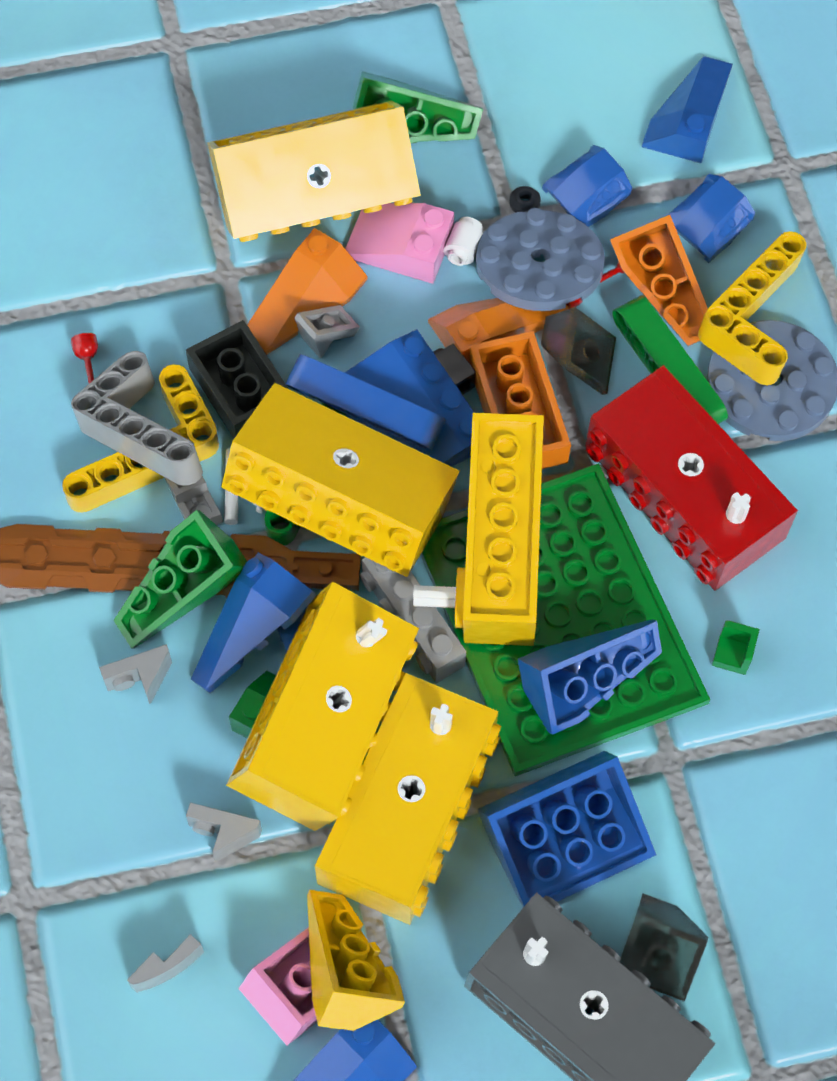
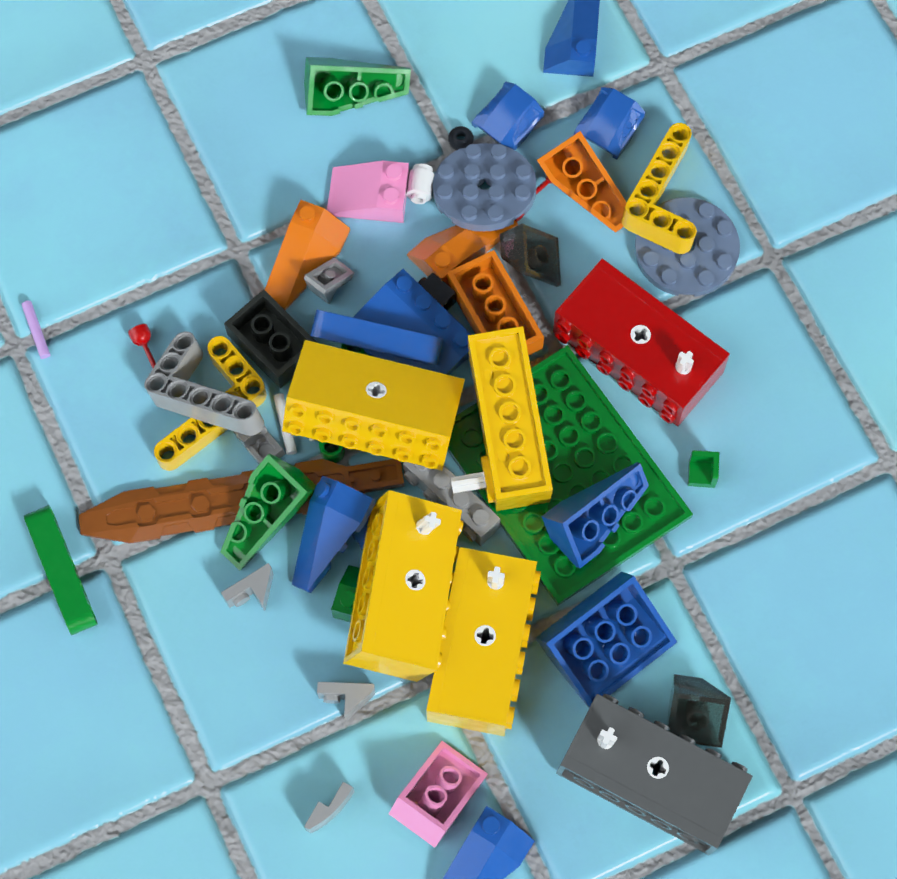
camera: 10 degrees left, 5 degrees up
(346, 971) = (468, 785): yellow wedge -> none
(360, 160) = (289, 152): yellow piece -> none
(659, 347) = (597, 243): green beam -> none

